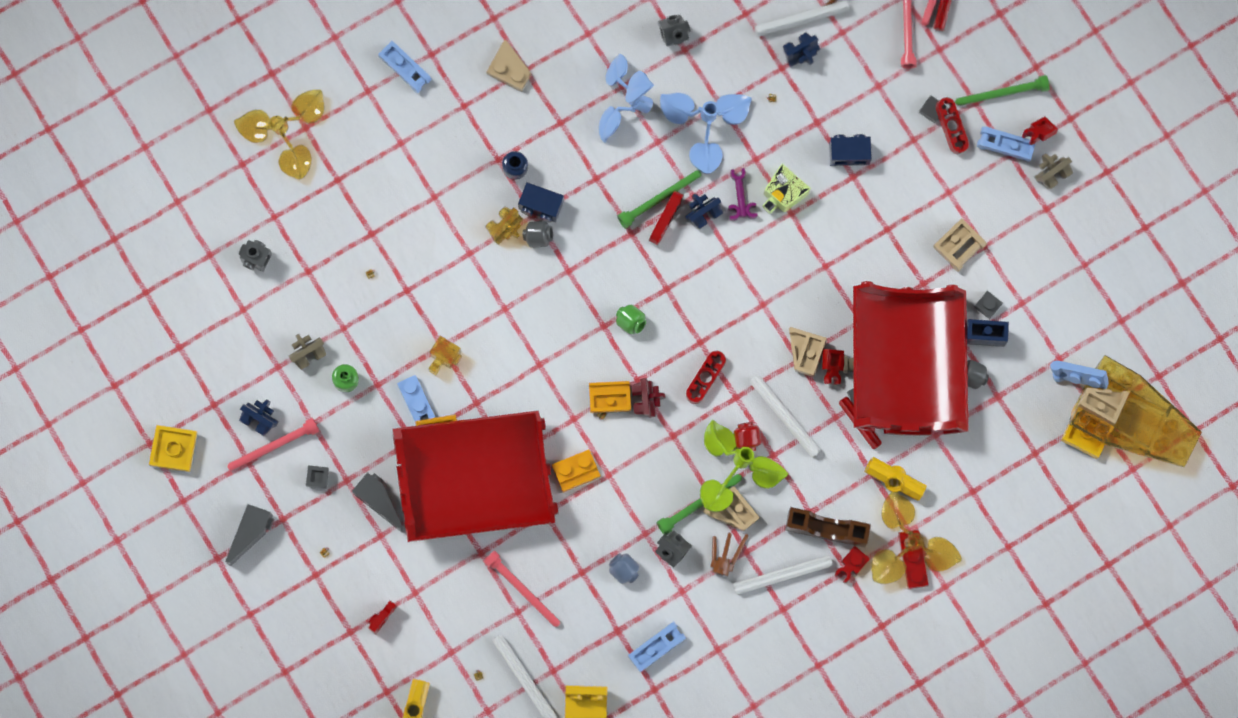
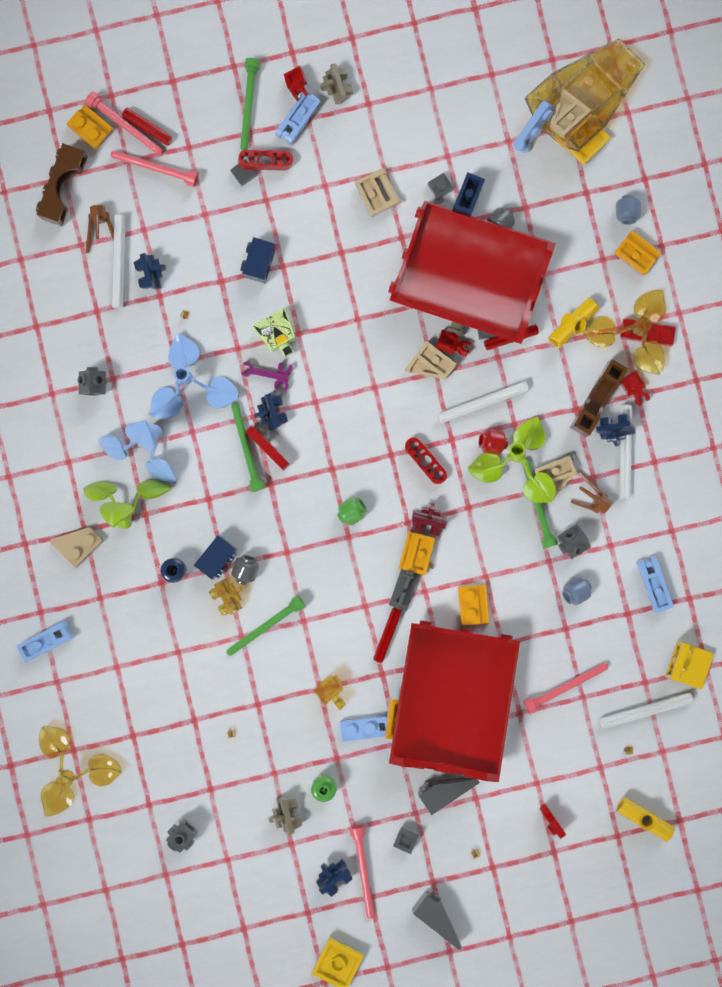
camera: 70 degrees left, 10 degrees up
(518, 294) = (295, 605): none -> bright green piece
(518, 394) = (387, 635): none -> red axle
(555, 87) = (120, 513): none -> lime plant
(568, 396) = (403, 590): none -> dark grey hinge
(799, 554) = (616, 431): none -> dark blue hips
(990, 522) = (637, 253): none -> light orange plate
(1030, 498) = (628, 209): none -> sand blue head

